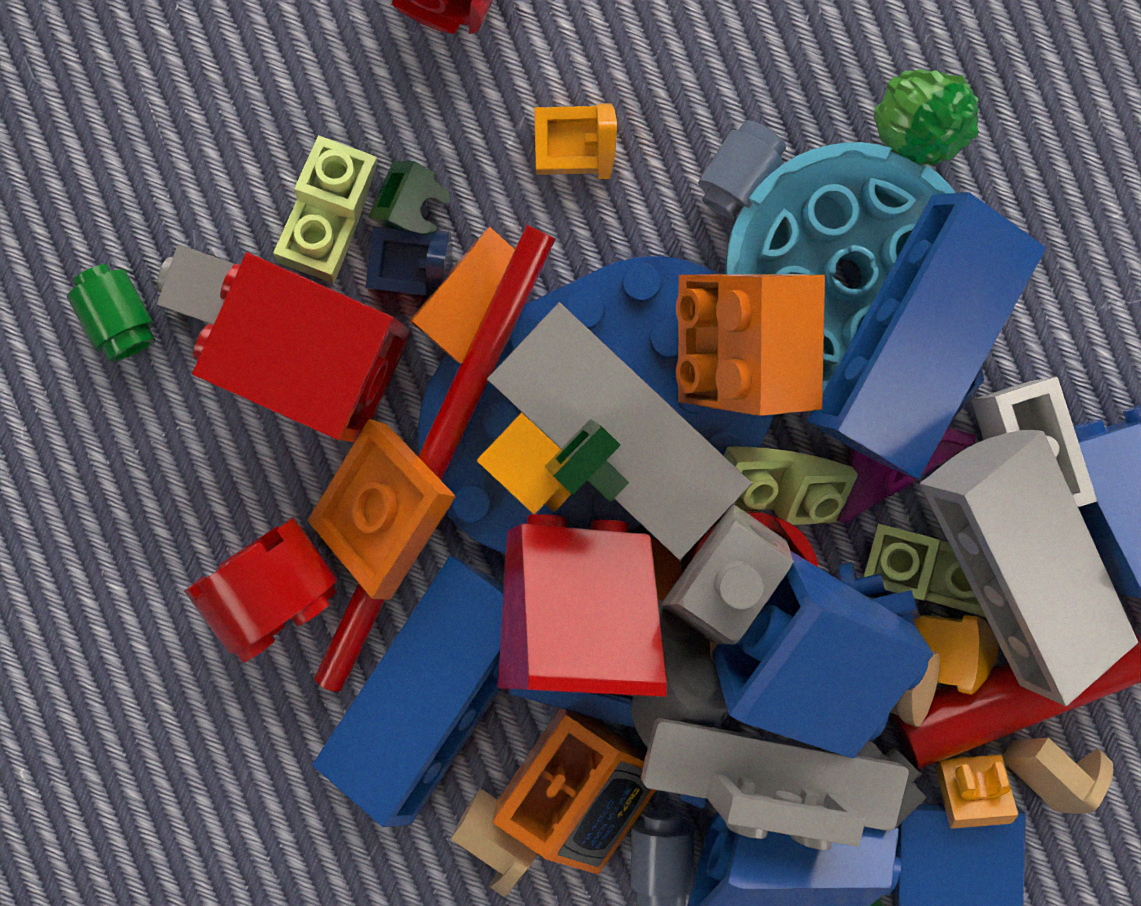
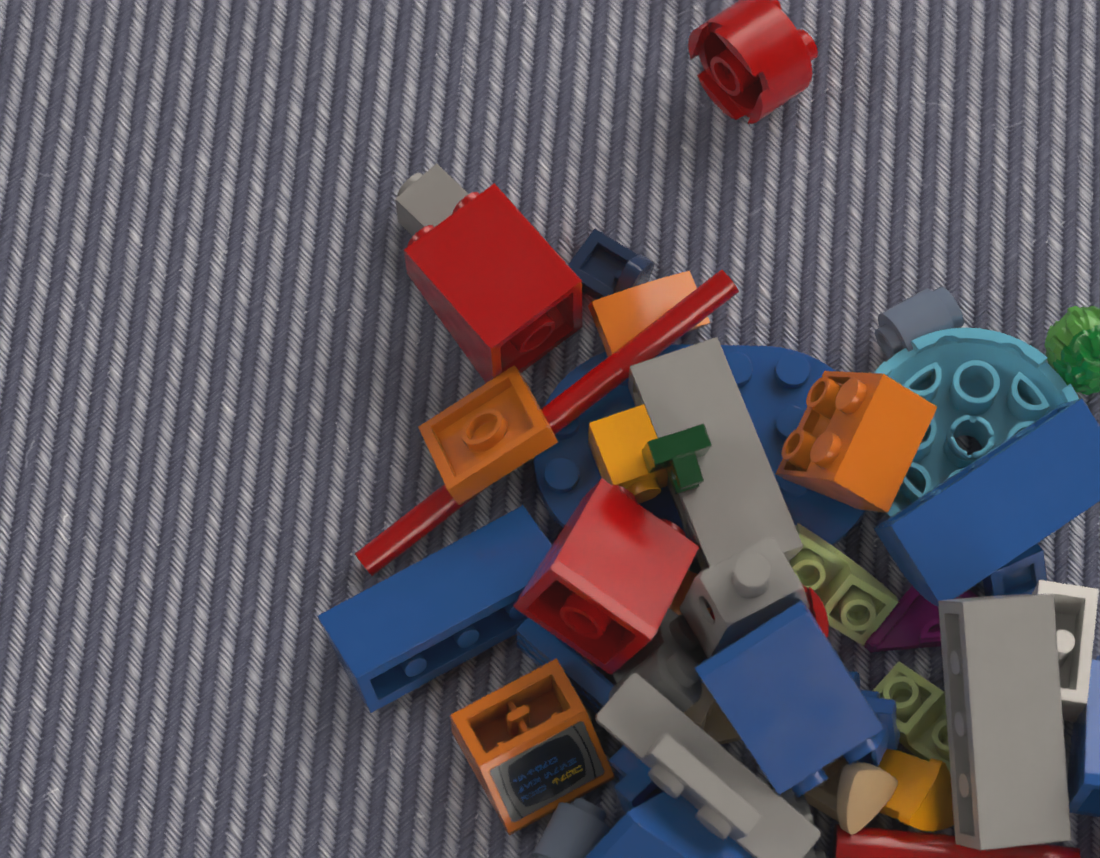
camera: 25 degrees right, 20 degrees down
(111, 312) = (351, 194): green brick -> none
(262, 589) = (359, 450): red brick -> none
(326, 209) = (570, 194): yellowish green slope -> none
(403, 194) = (631, 216): dark green tile -> none
(492, 844) = (443, 759): tan tile -> none
(575, 140) = (793, 243): light orange tile -> none

